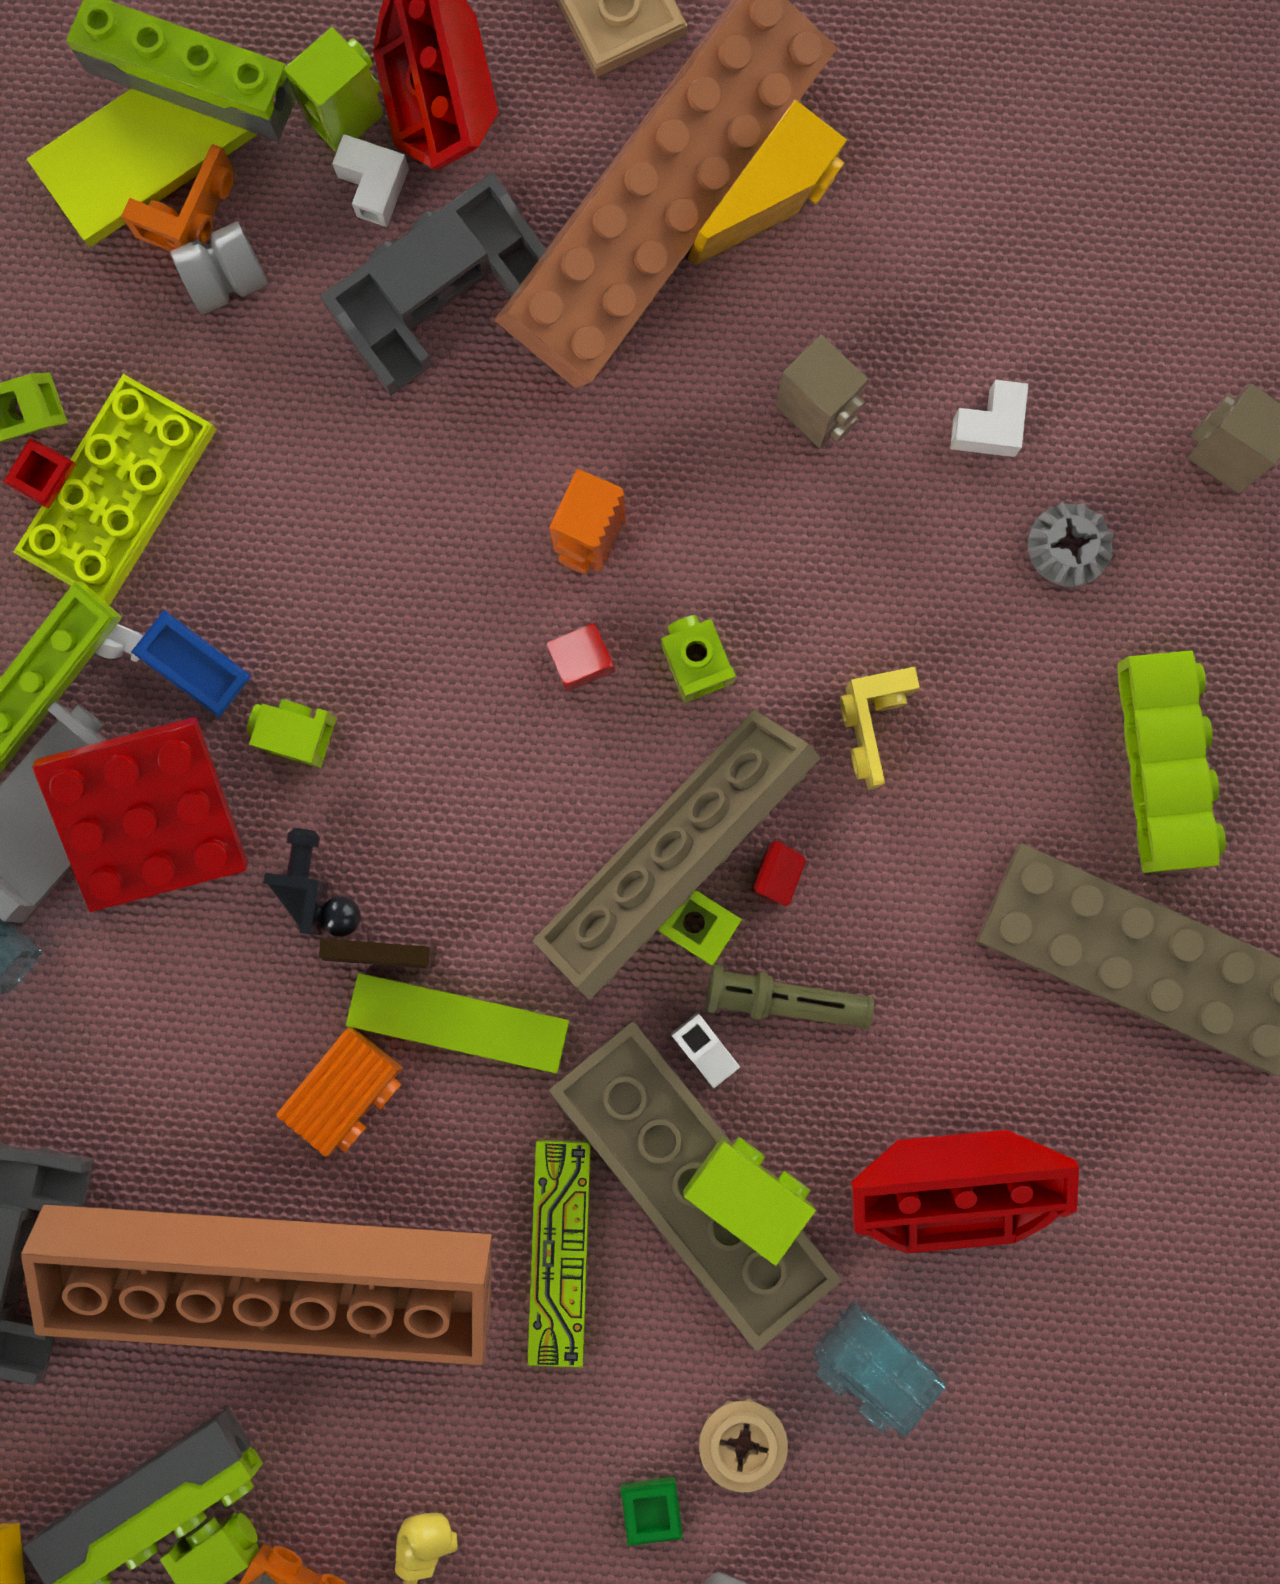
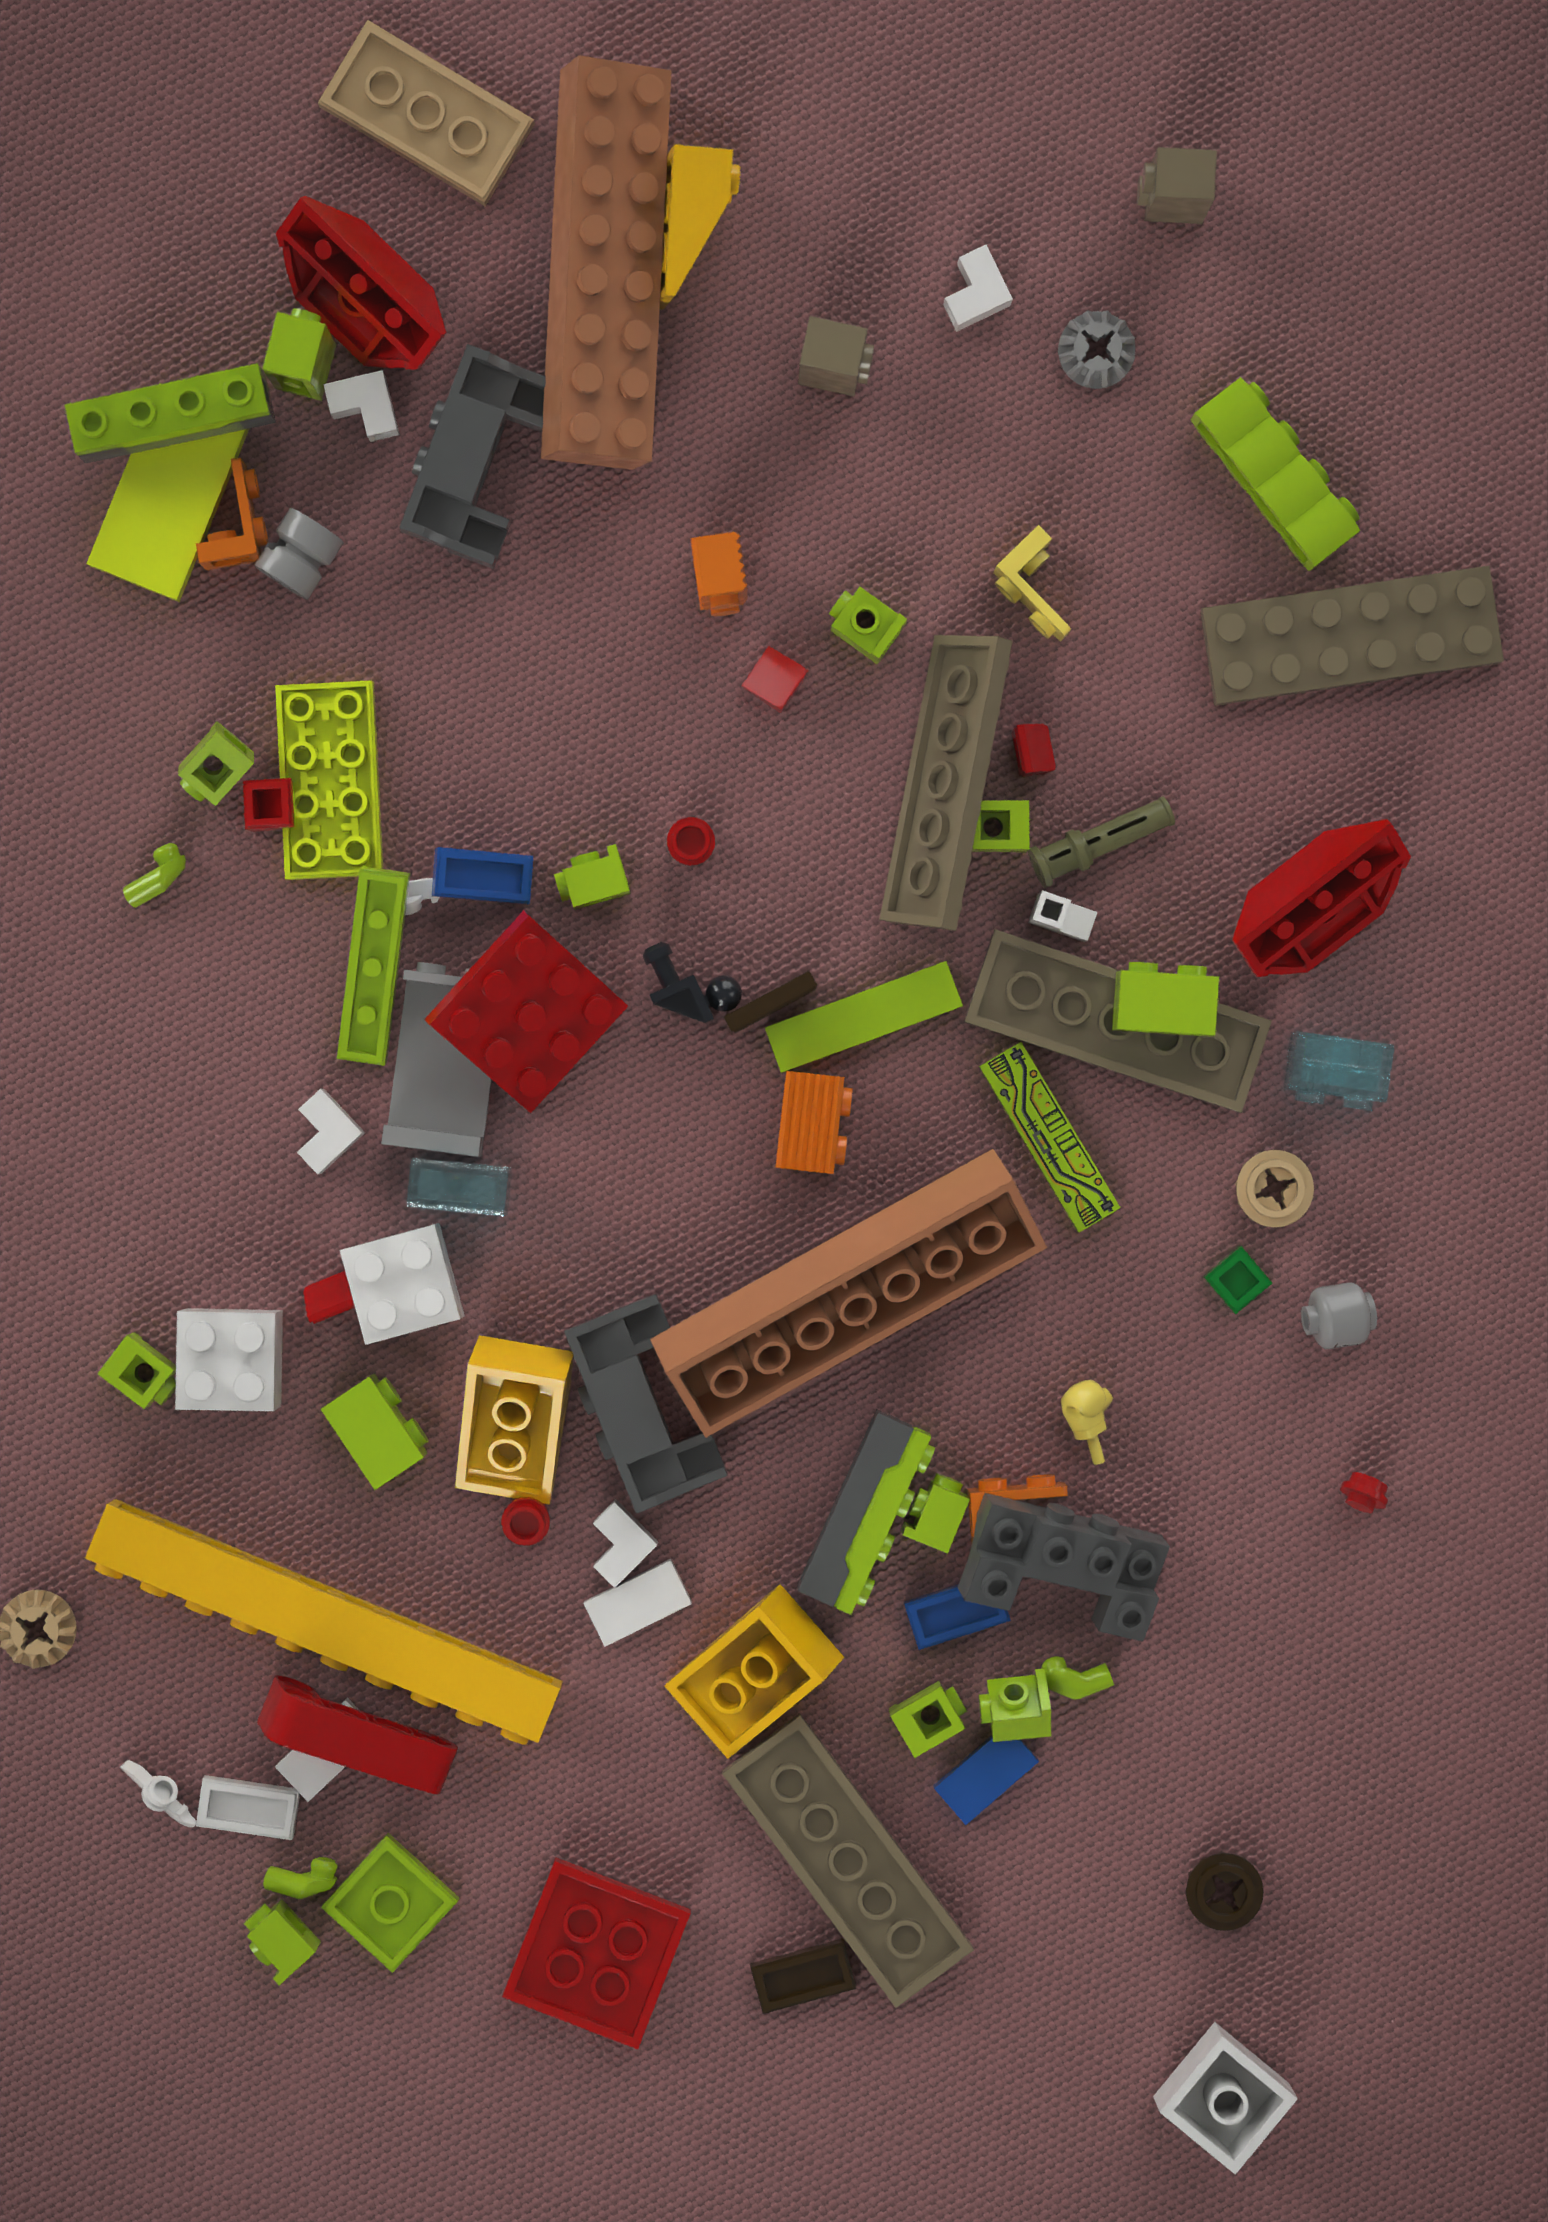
camera: 40 degrees left, 5 degrees up
(405, 755) = (691, 841): none -> red plate

